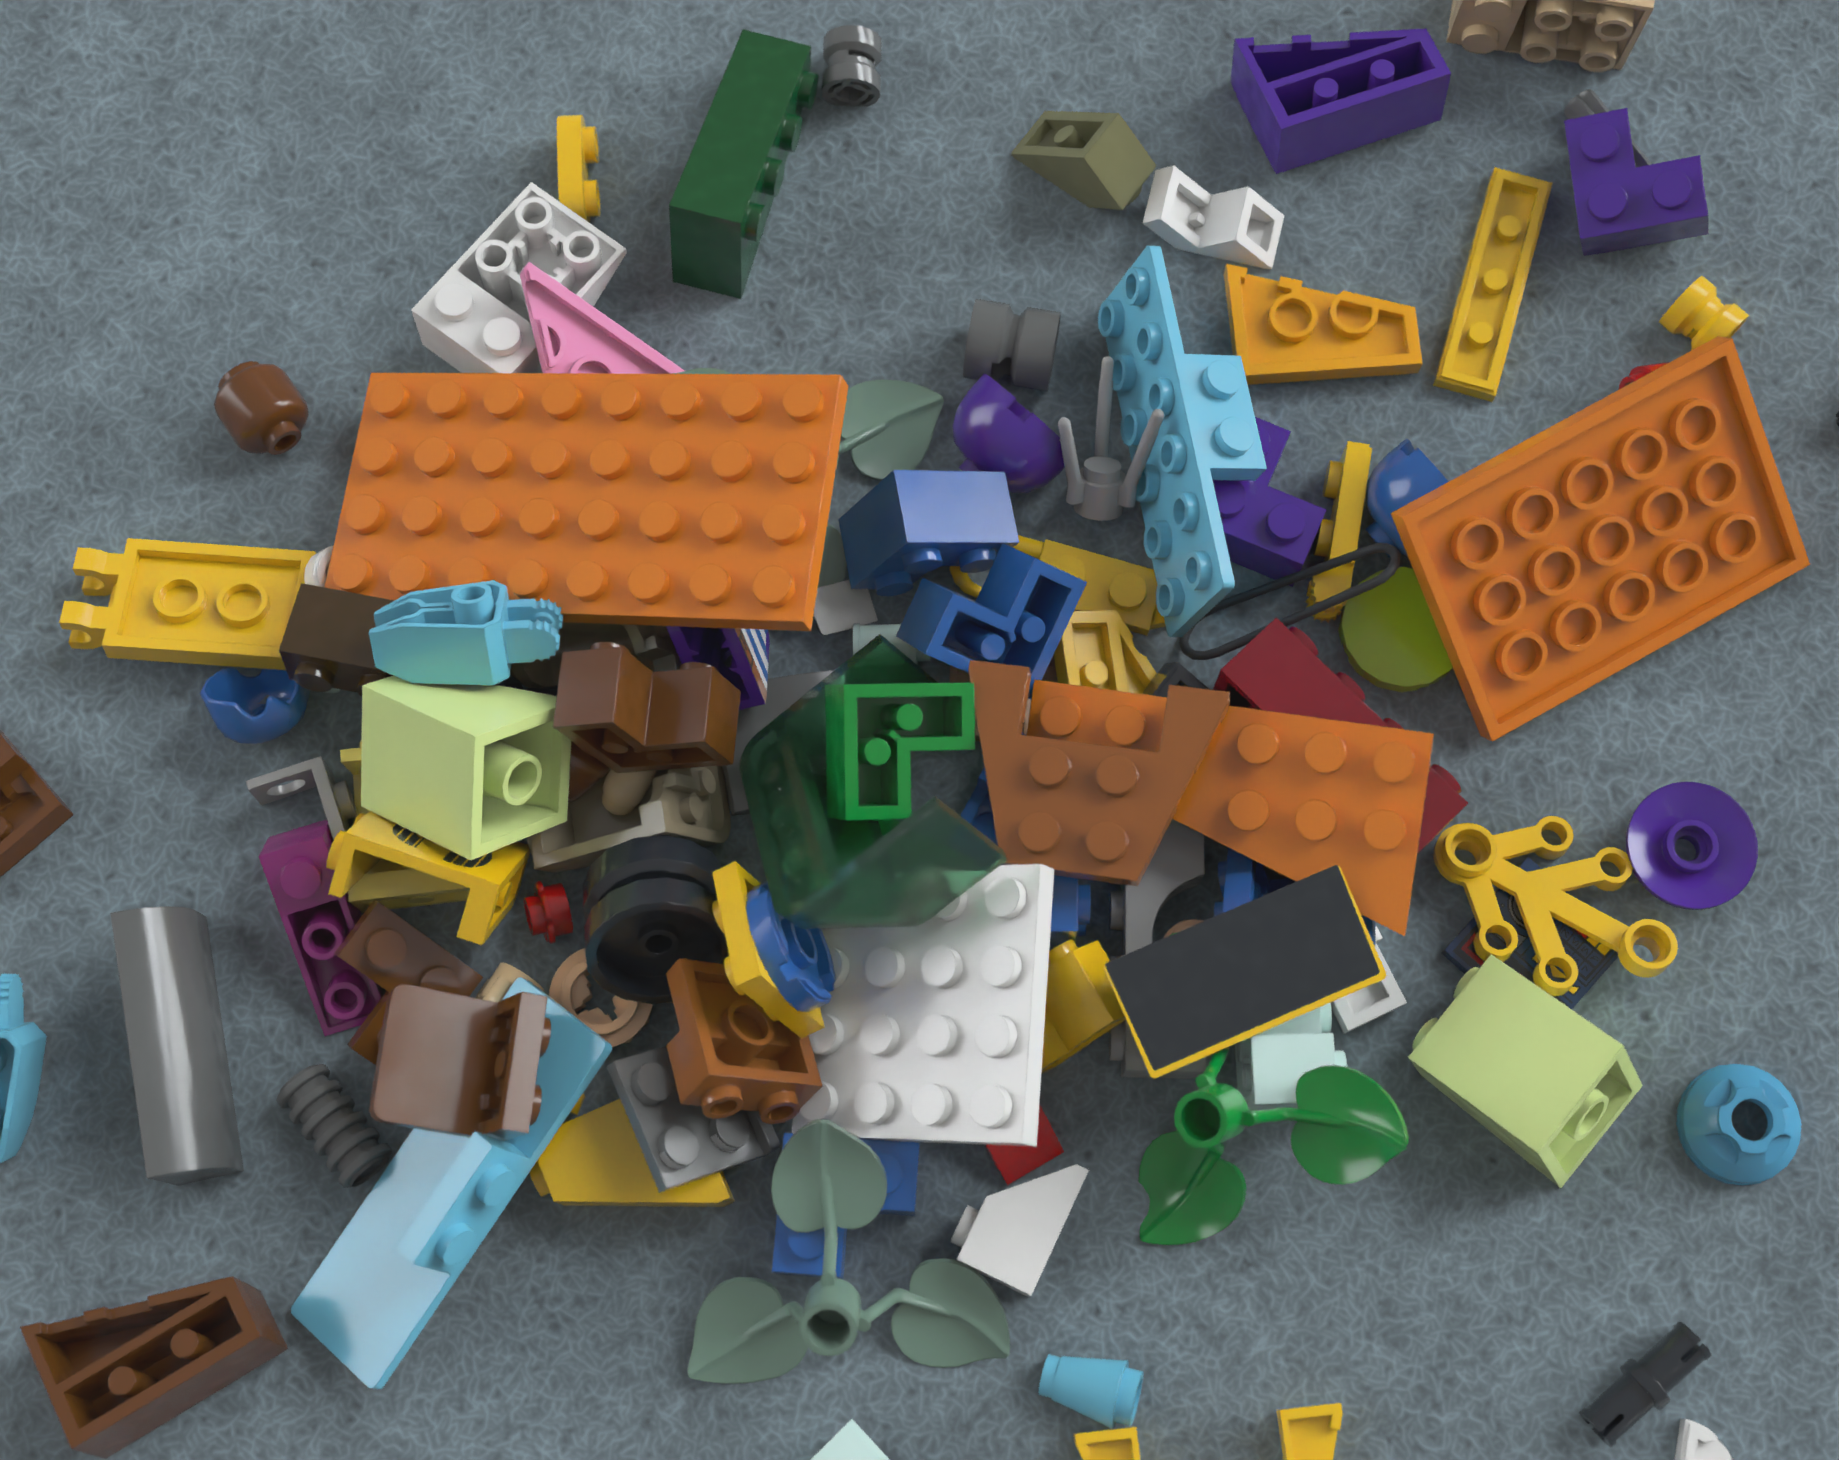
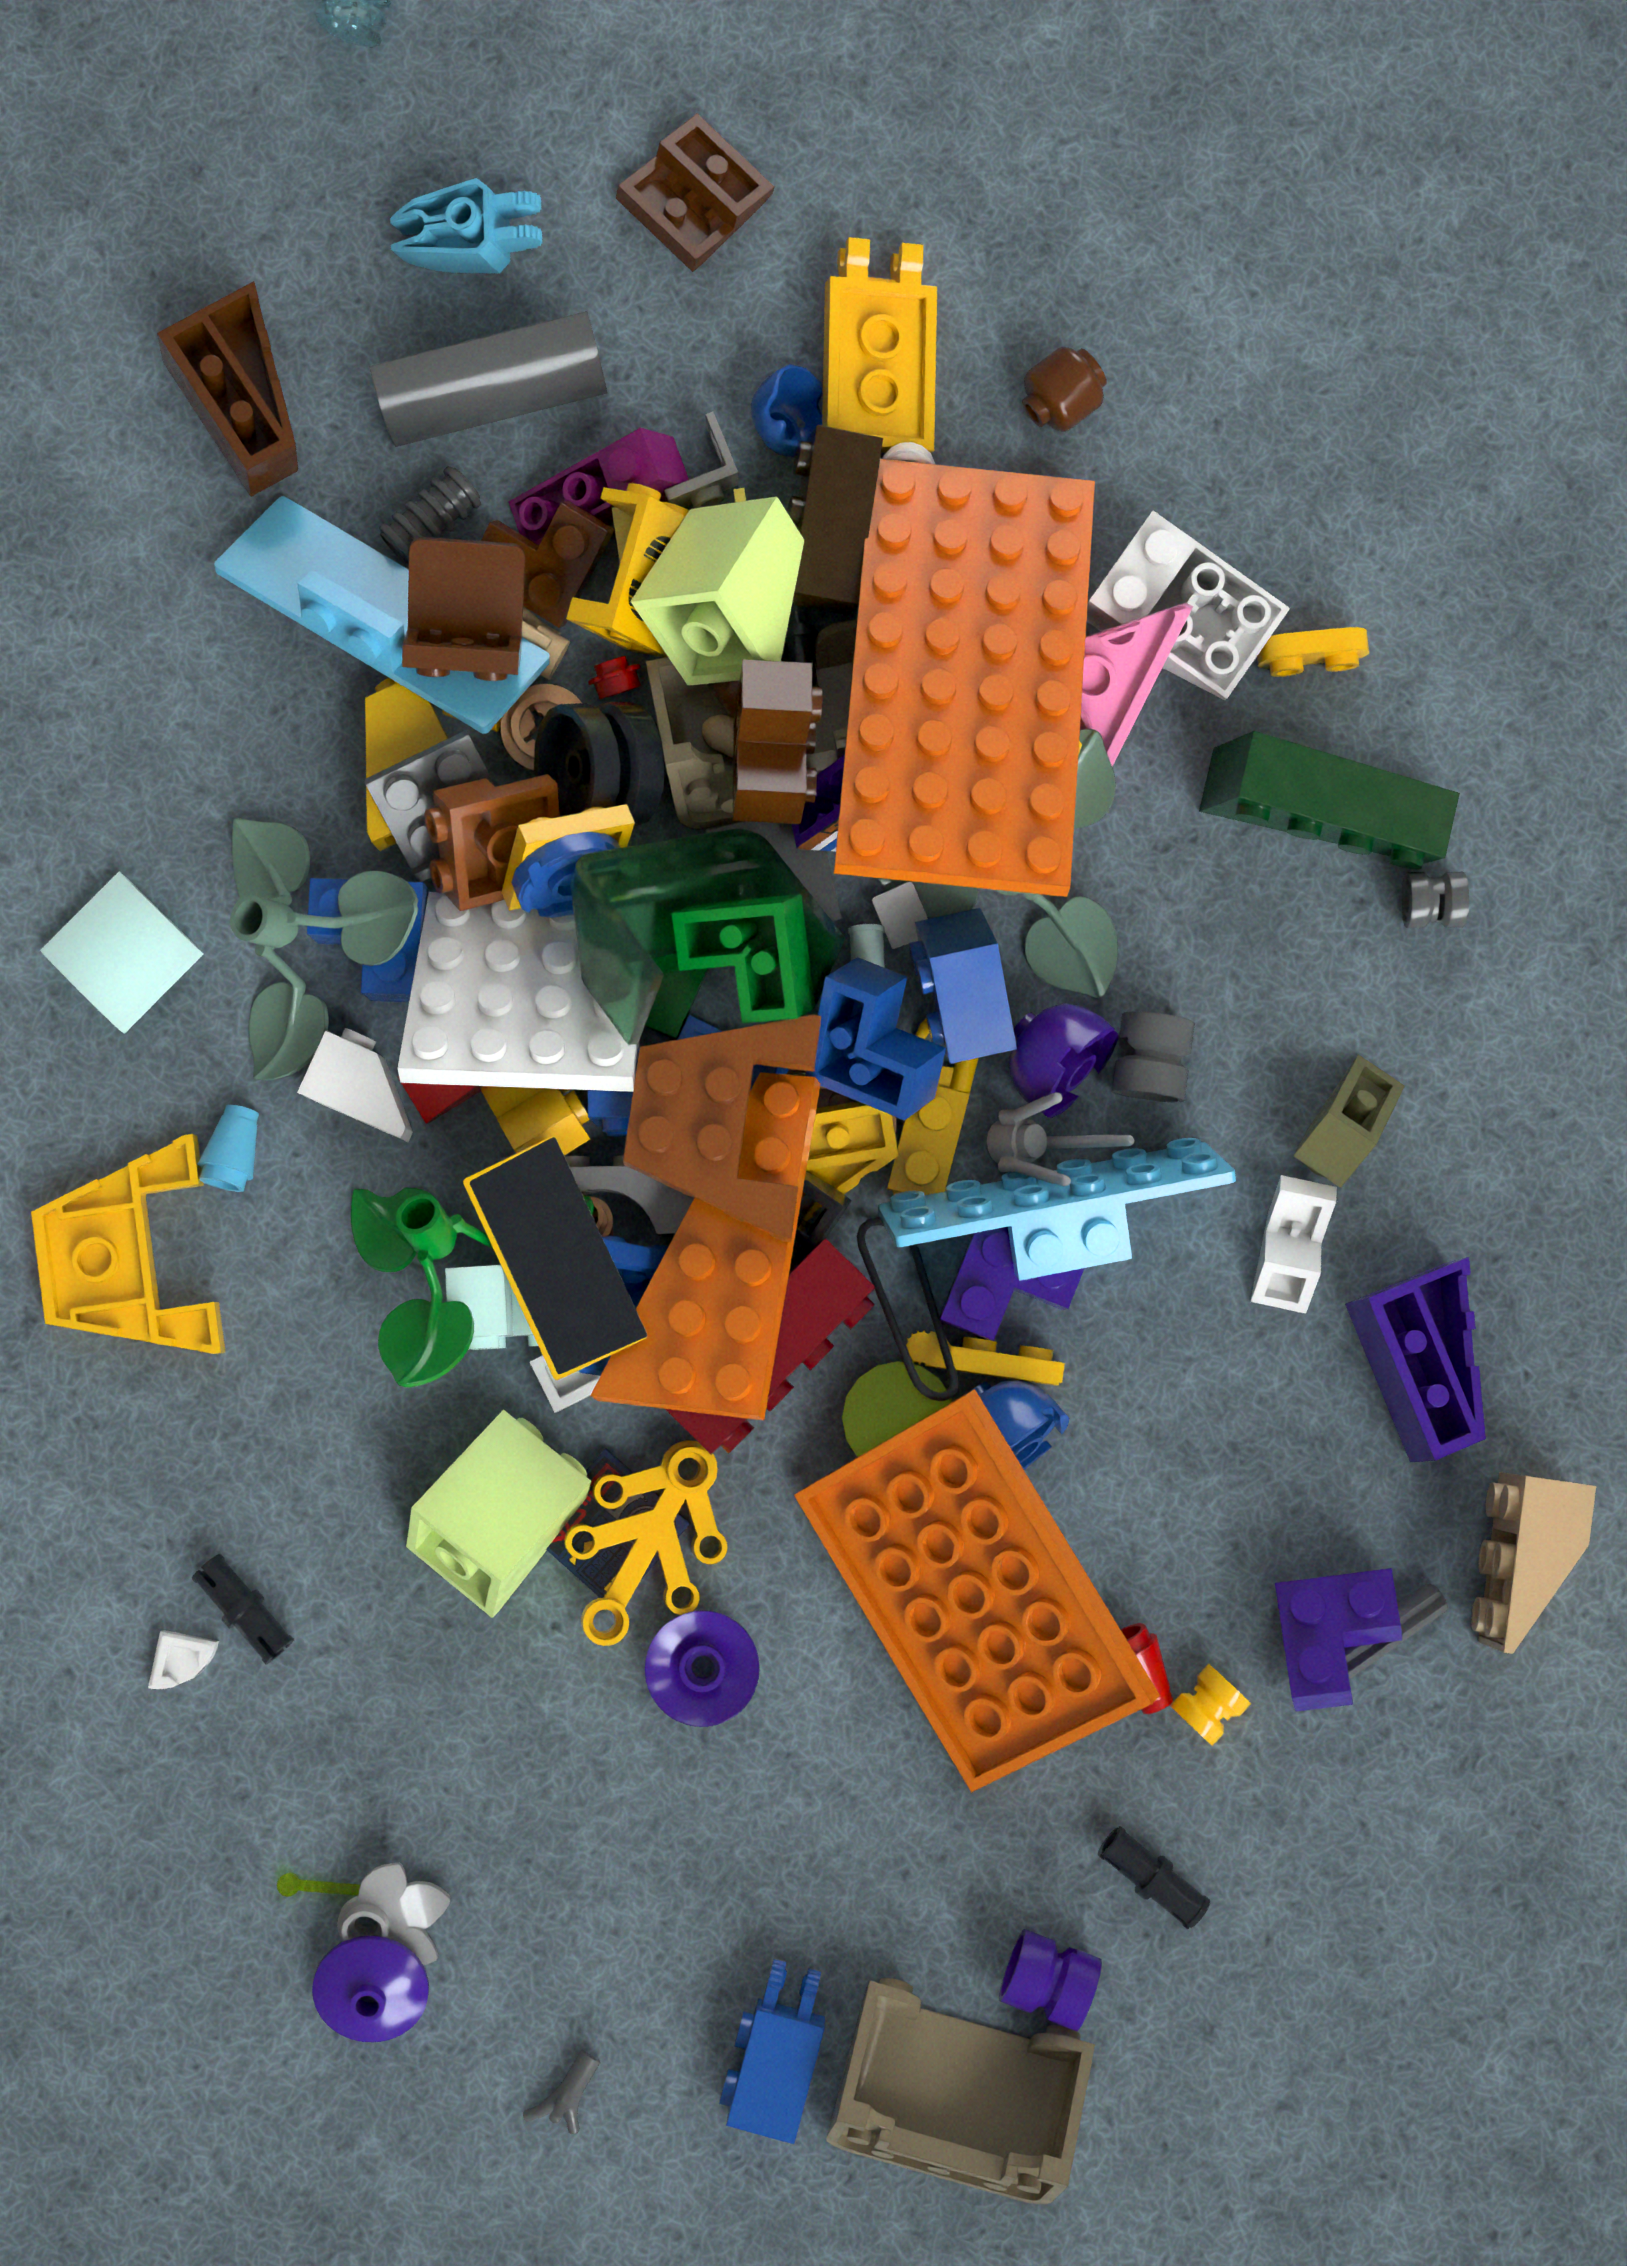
camera: 90 degrees right, 10 degrees up
(463, 634) = (828, 579): medium azure hinge -> none
(1314, 334) = (1182, 1338): light orange wing -> none
(1493, 284) = (1243, 1509): yellow tile -> none
(1708, 1131) = (484, 1680): dark azure piece -> none

